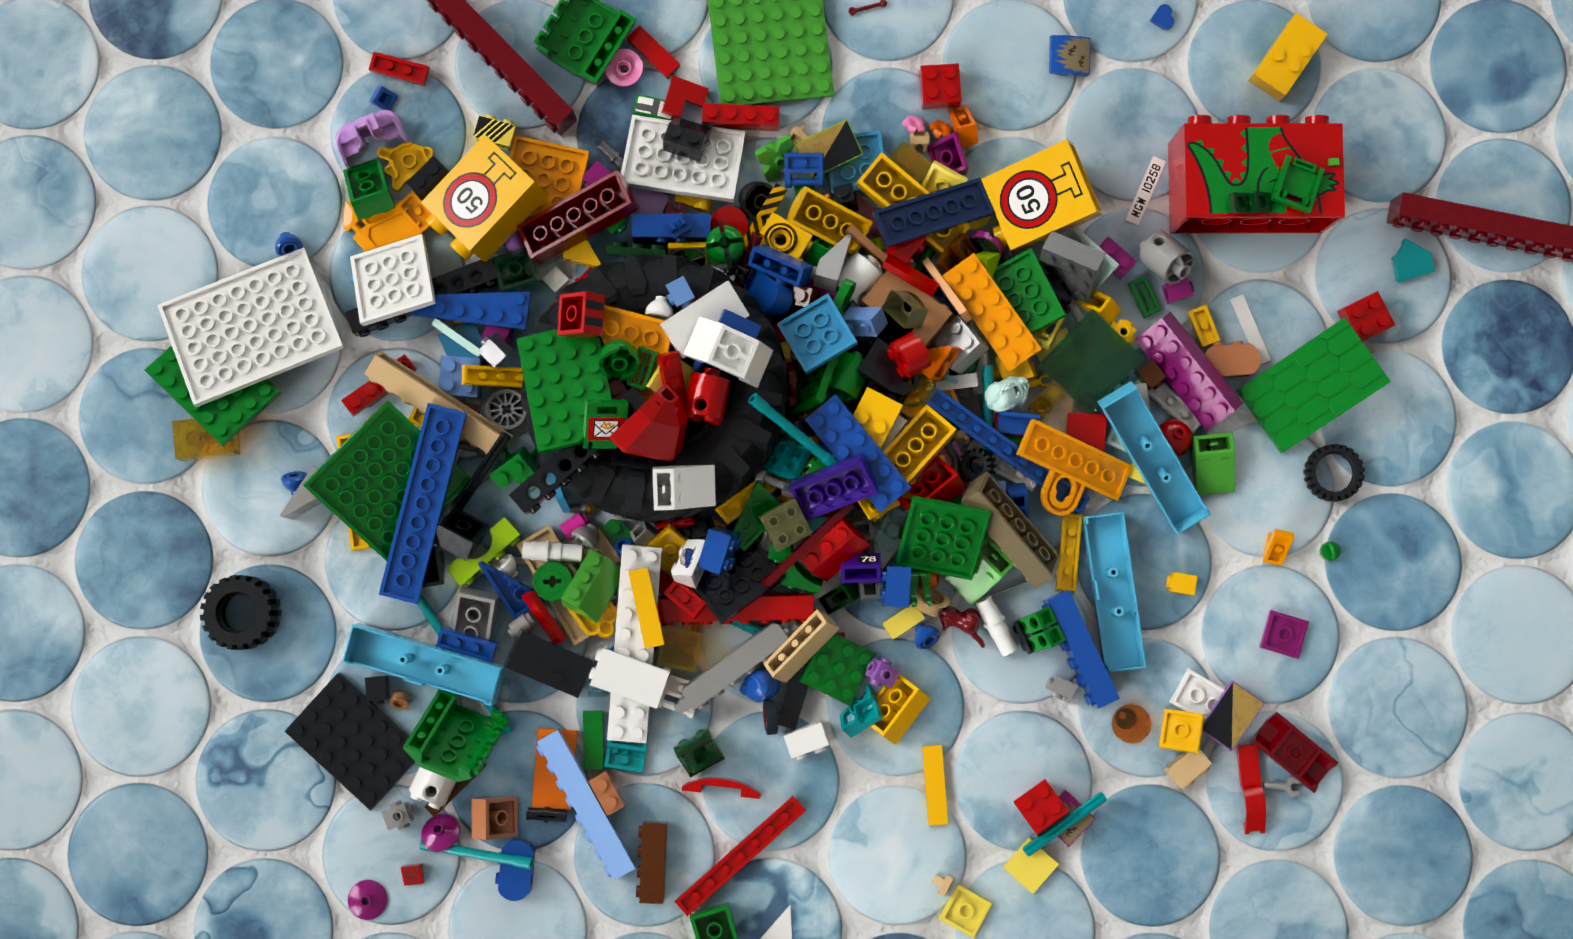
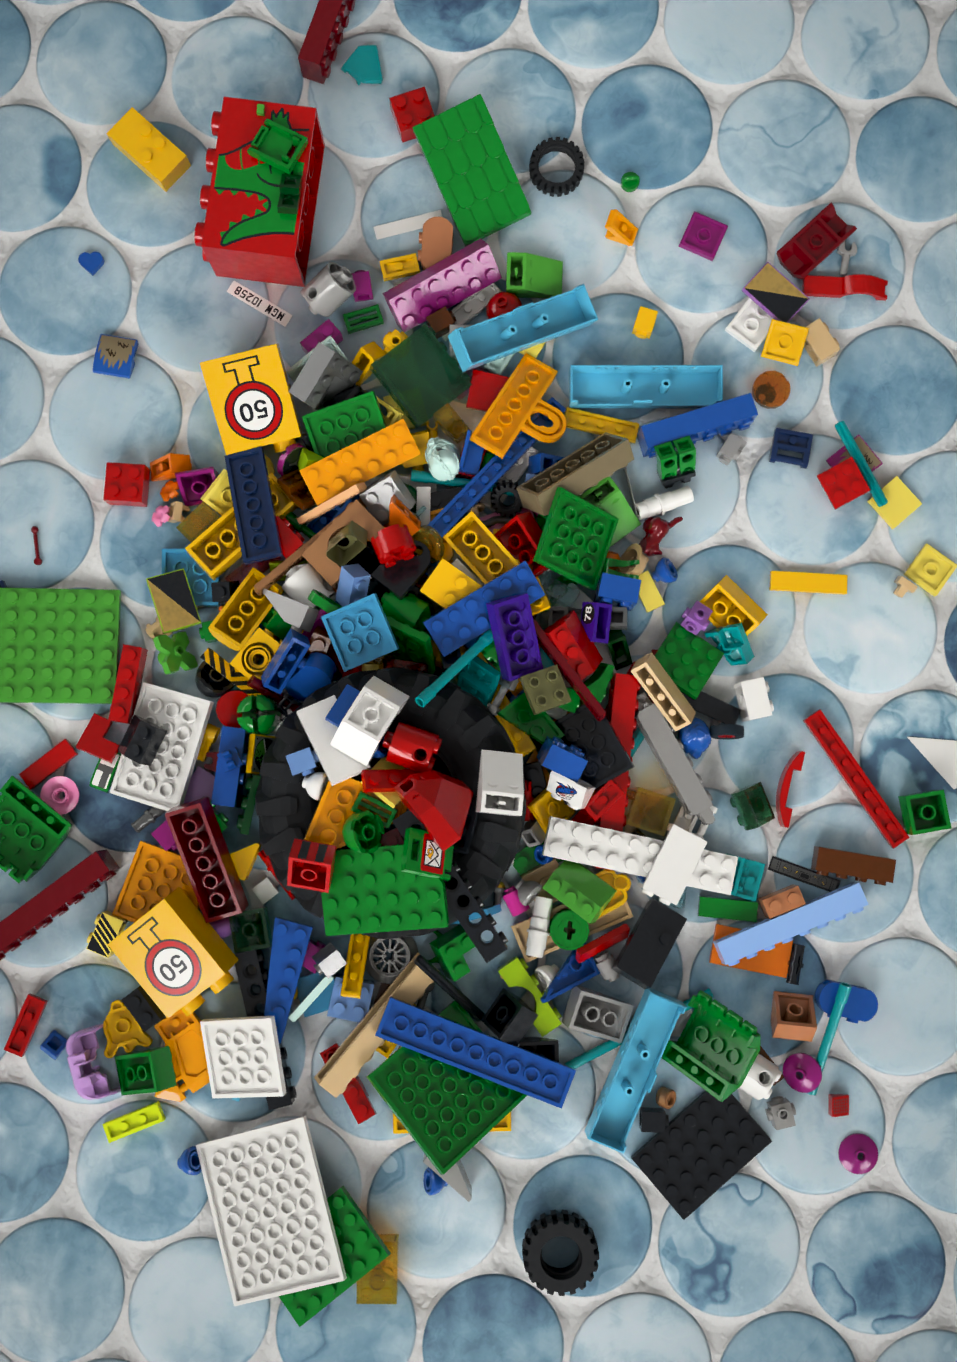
camera: 80 degrees left, 0 degrees up
(319, 185) = (134, 1121): none -> neon yellow tile
(467, 644) = (620, 1024): blue tile -> none
(637, 813) = (803, 874): none -> sticker
(646, 607) = (608, 838): yellow tile -> none
(804, 164) = (185, 624): blue plate -> none
(910, 275) = (312, 535): red tile -> none
(1079, 750) = (791, 441): none -> dark blue plate

